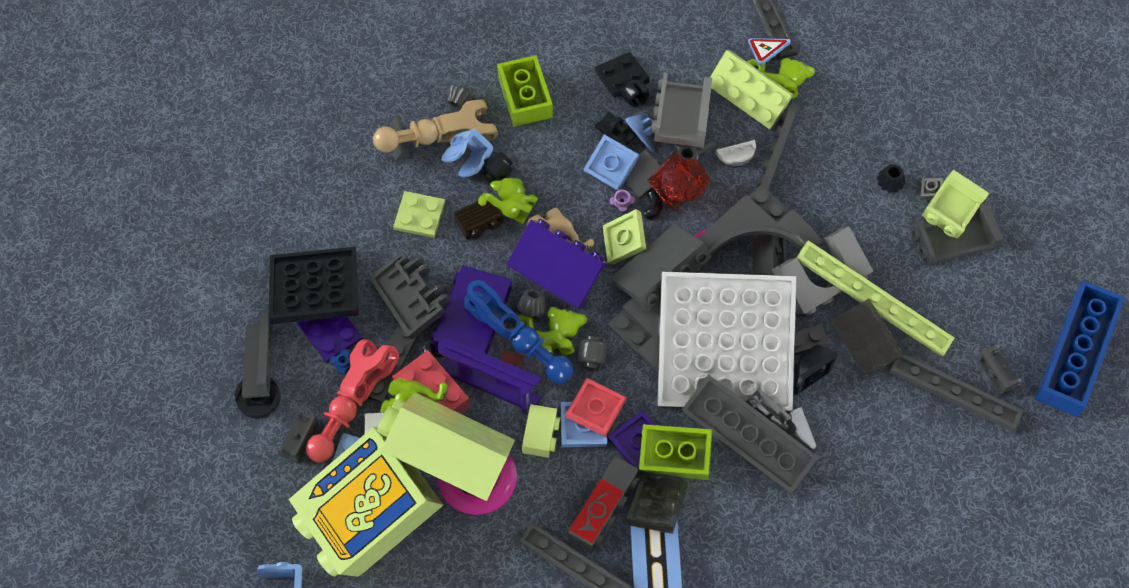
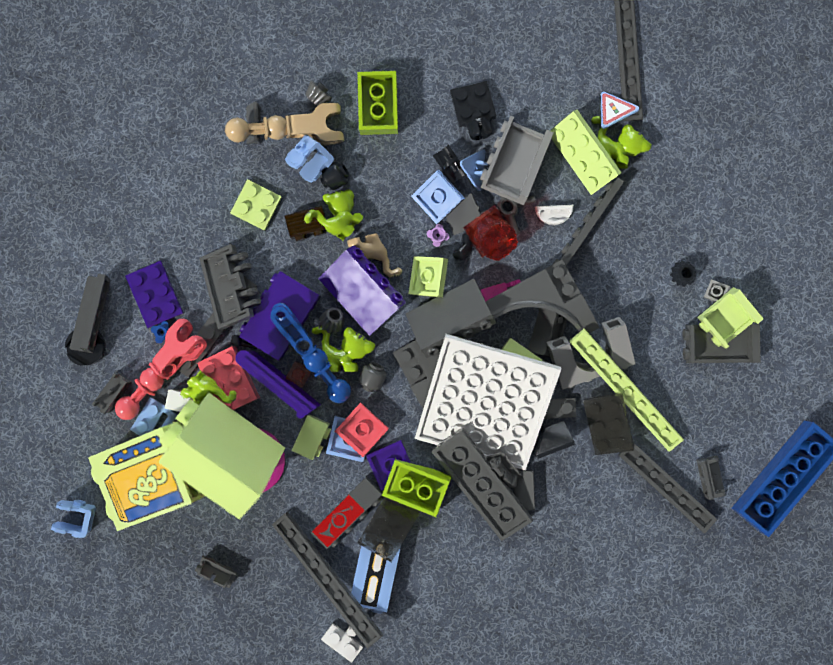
camera: 15 degrees right, 25 degrees up
(313, 285) = (148, 257): black plate -> none

